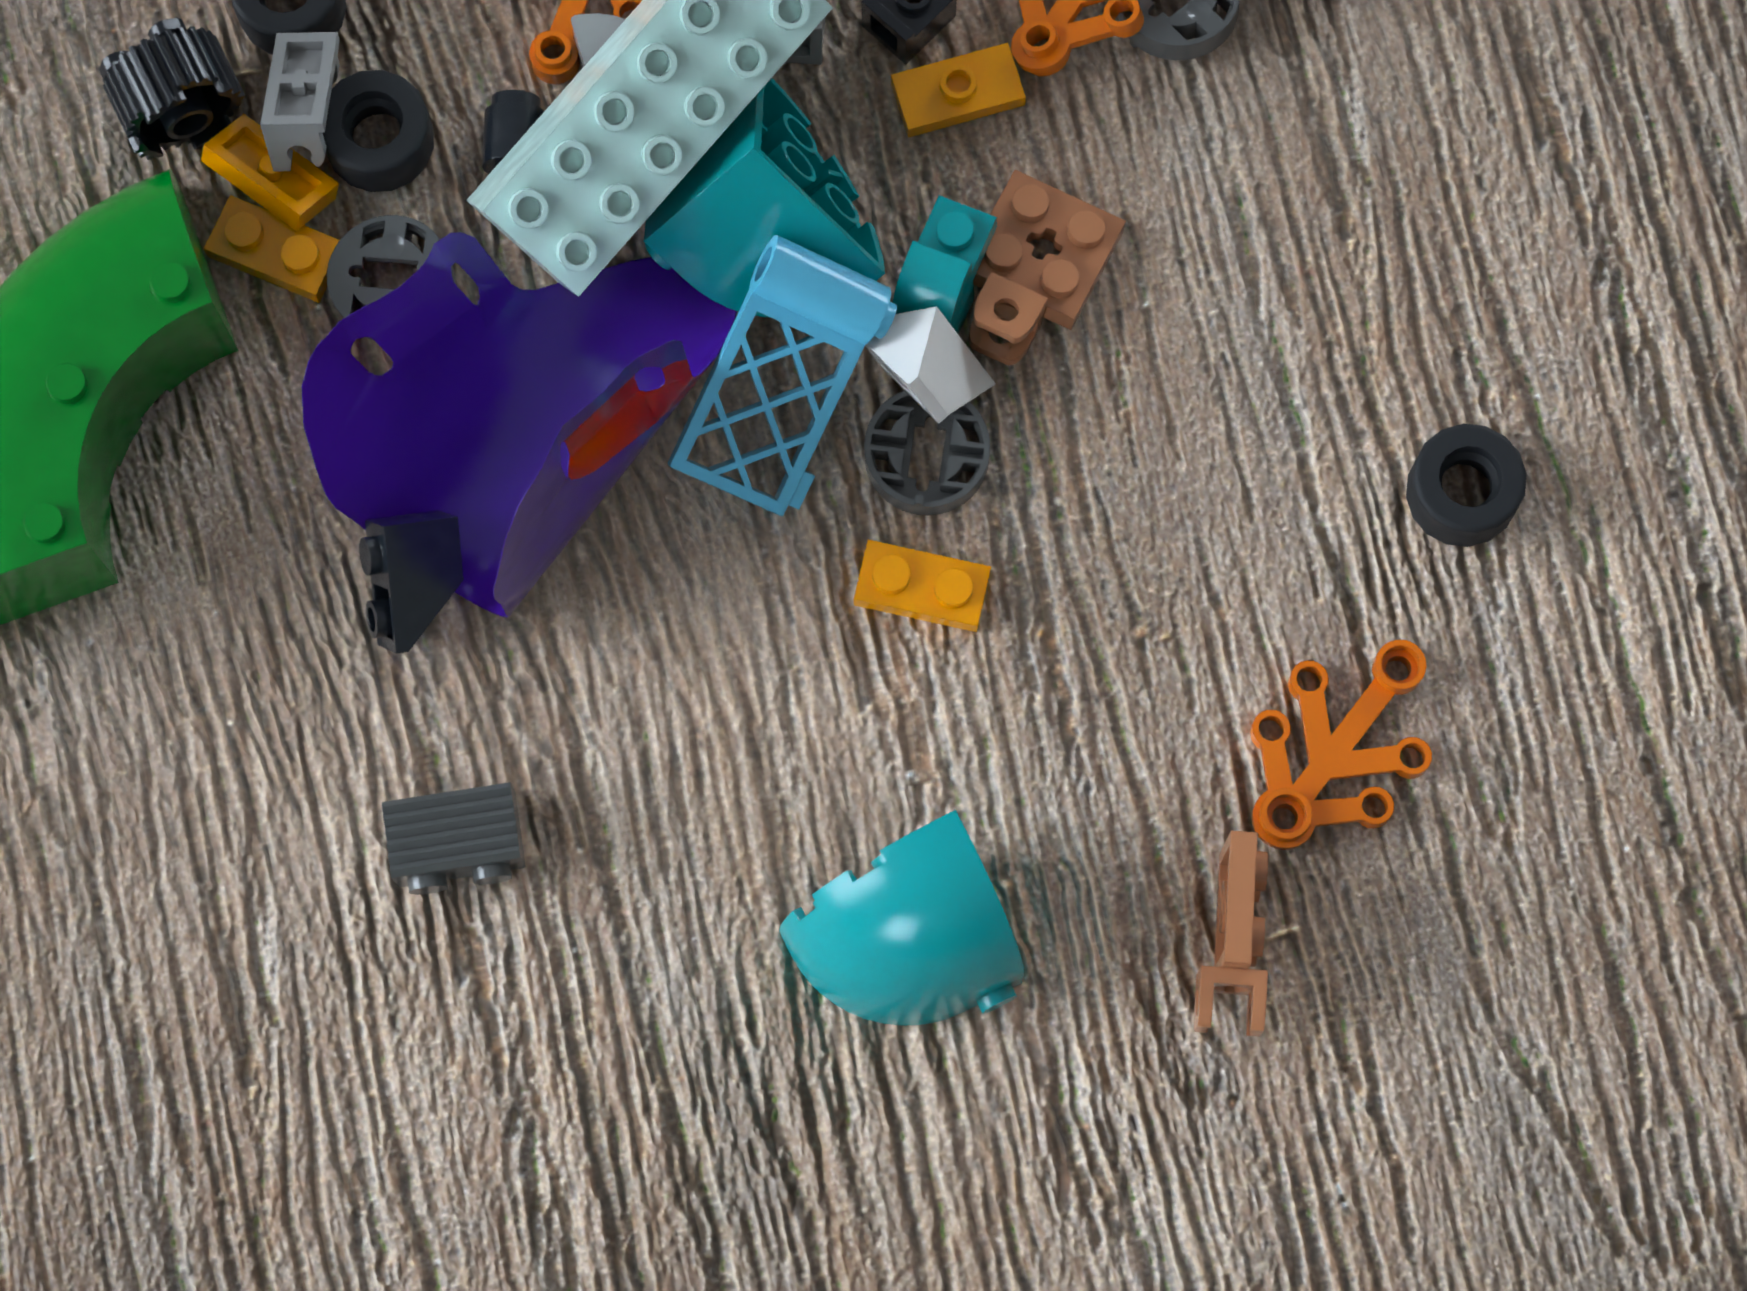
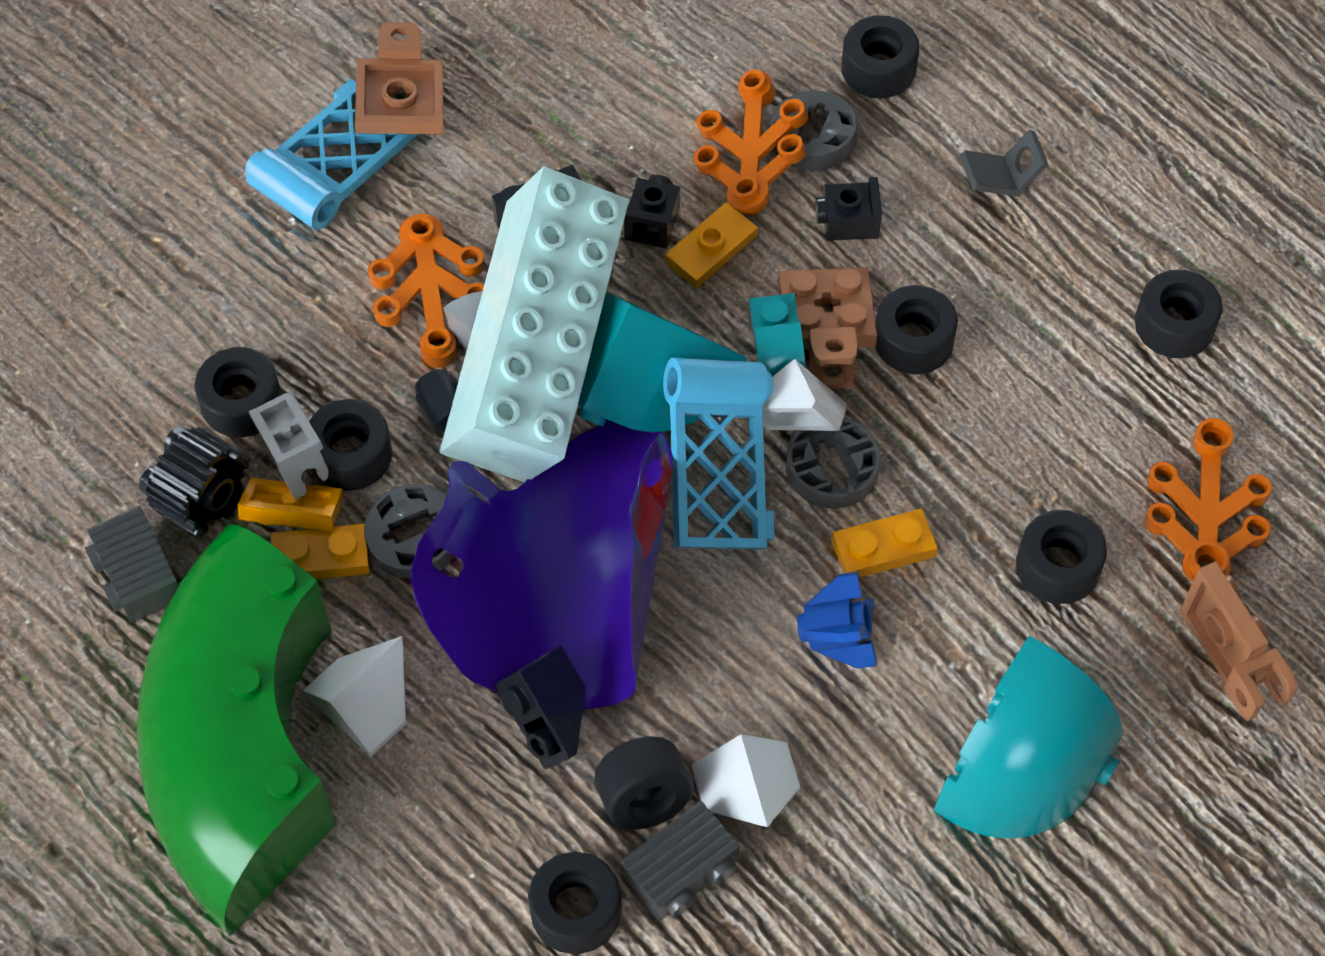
camera: 30 degrees left, 15 degrees down
(55, 152) = (134, 564): none -> dark grey brick
(224, 449) = (364, 694): none -> white slope
(282, 792) = (569, 871): none -> black tyre
(463, 725) = (643, 783): none -> black tyre
(587, 786) = (747, 779): none -> white slope
(803, 657) = (837, 623): none -> blue brick
(1121, 676) = (1070, 532): none -> black tyre
(1134, 297) = (919, 306): none -> black tyre
(1157, 151) = (850, 210): none -> black brick
(1375, 177) = (1003, 173): none -> dark grey bracket

